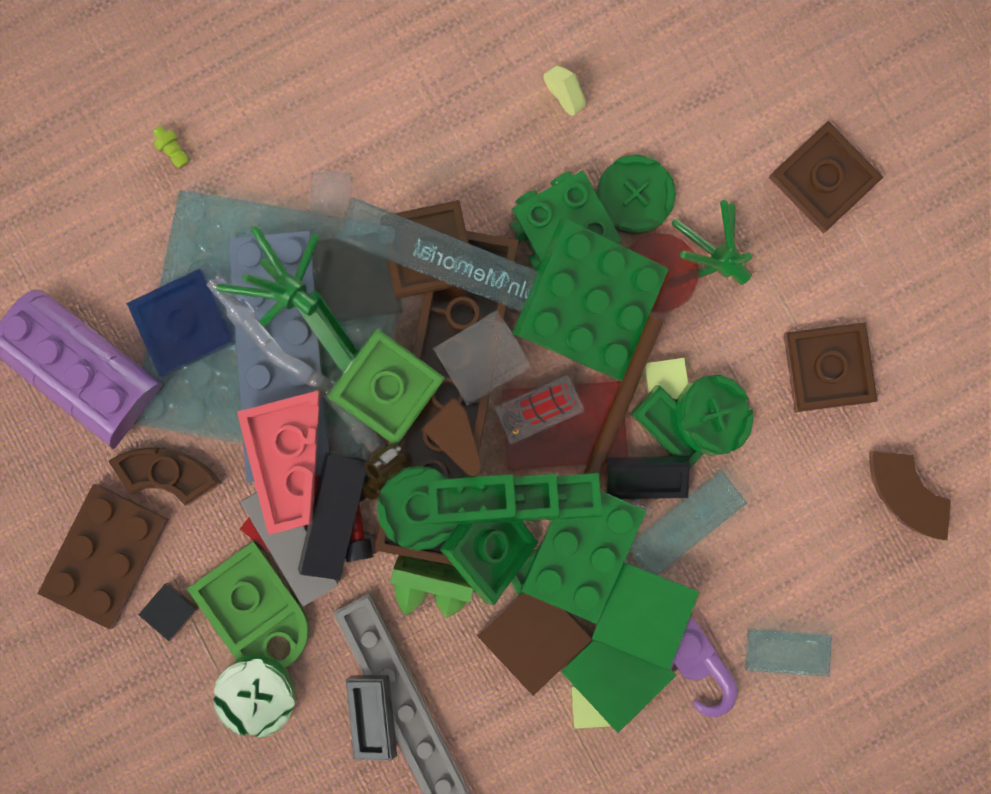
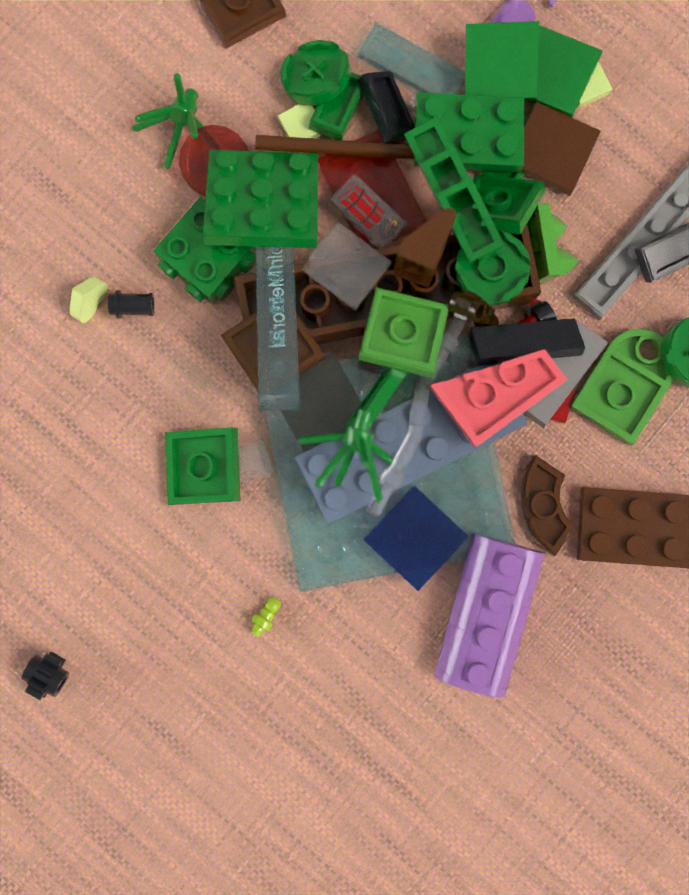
camera: 110 degrees left, 0 degrees up
(168, 611) = (657, 453): black tile -> none
(344, 140) = (202, 466): none -> green tile
(542, 131) = (130, 304): none -> black pin
(636, 194) = (153, 206): green tile -> none
(825, 177) = (81, 61): reddish brown tile -> none

